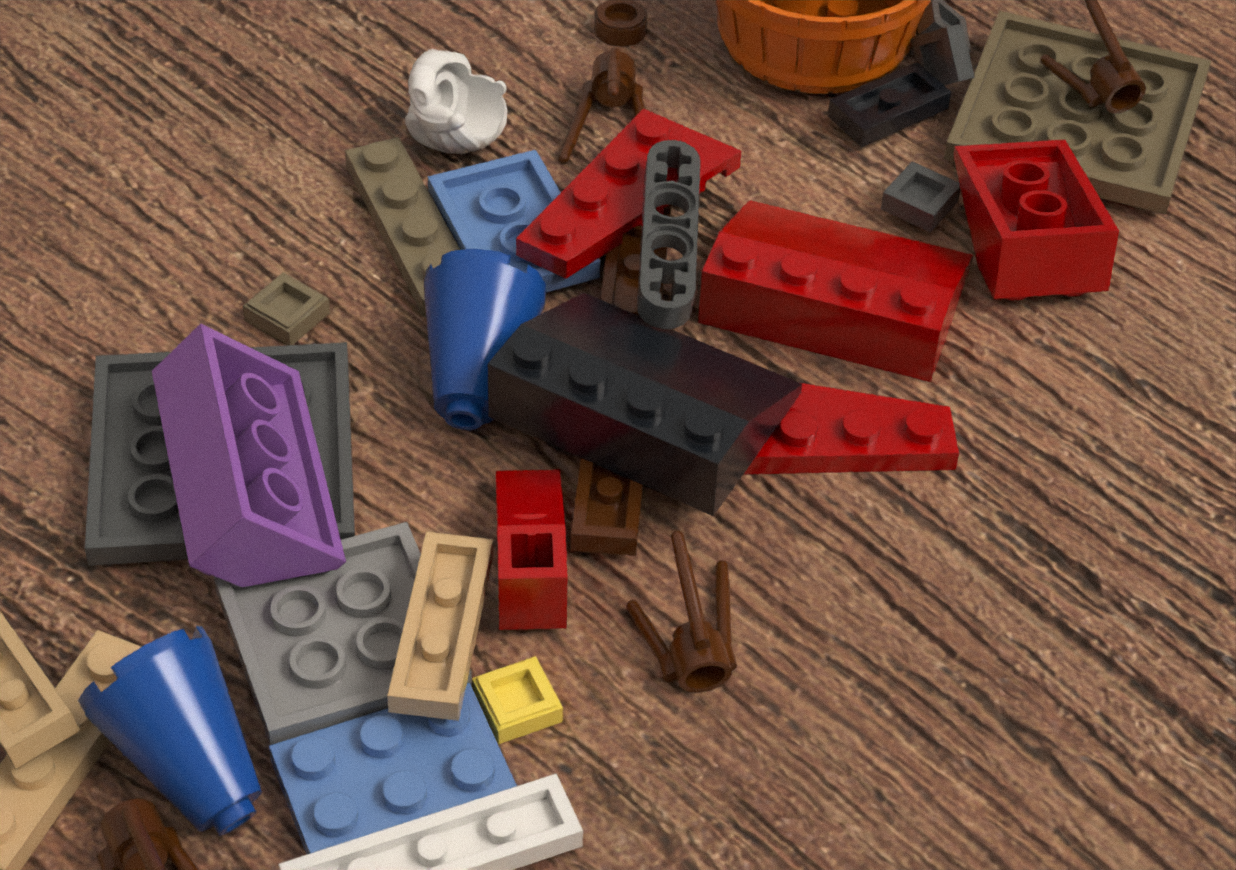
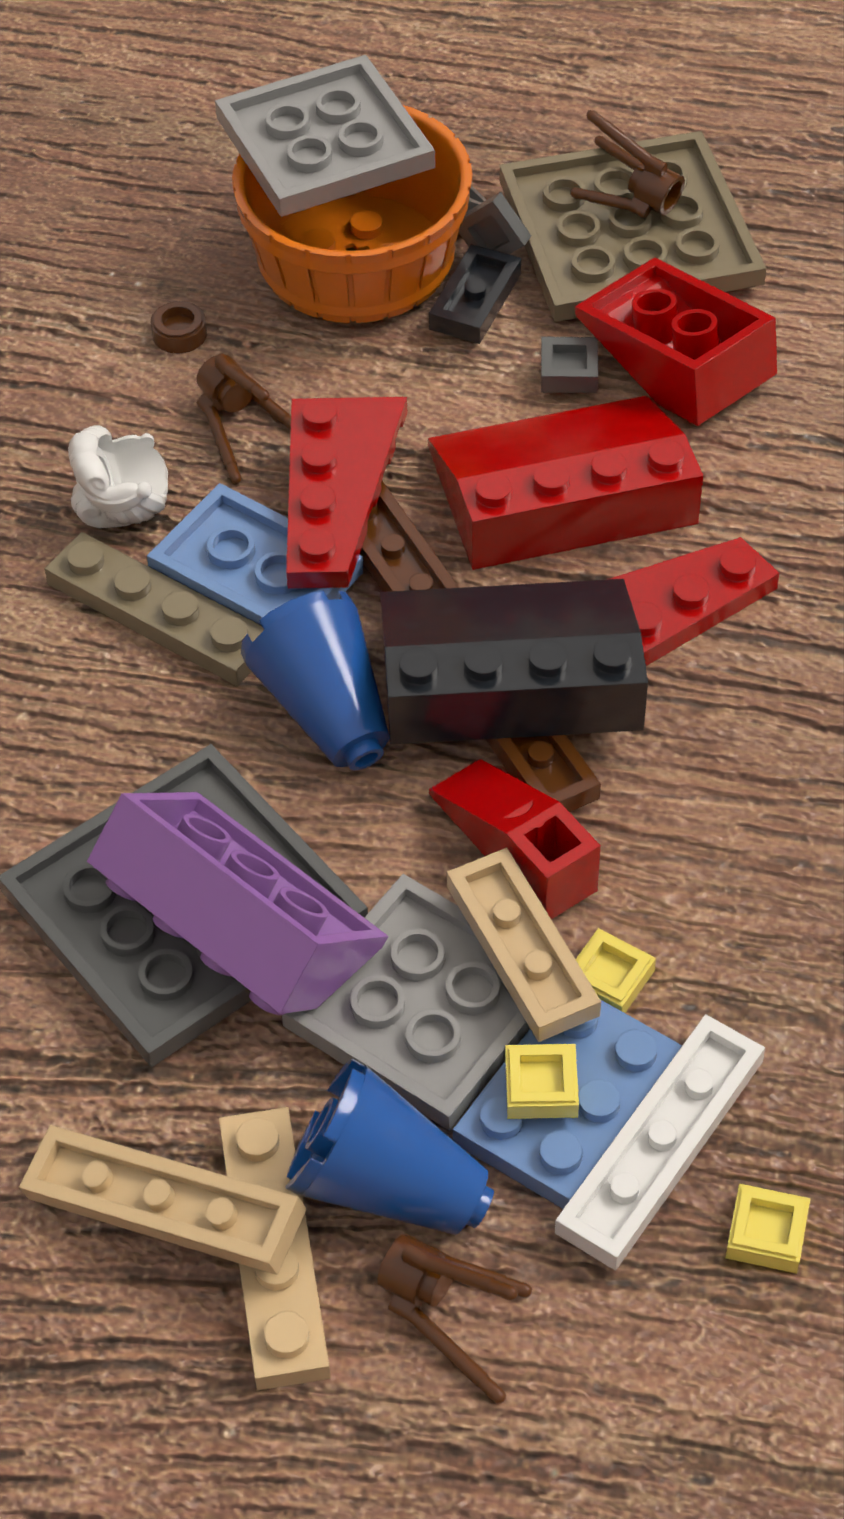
camera: 30 degrees left, 5 degrees up
(286, 309) = (117, 743): dark tan tile -> none
(363, 744) = (541, 1081): none -> light yellow tile
(670, 232) = (425, 497): dark grey beam -> none
(698, 654) = (721, 849): reddish brown plant -> none

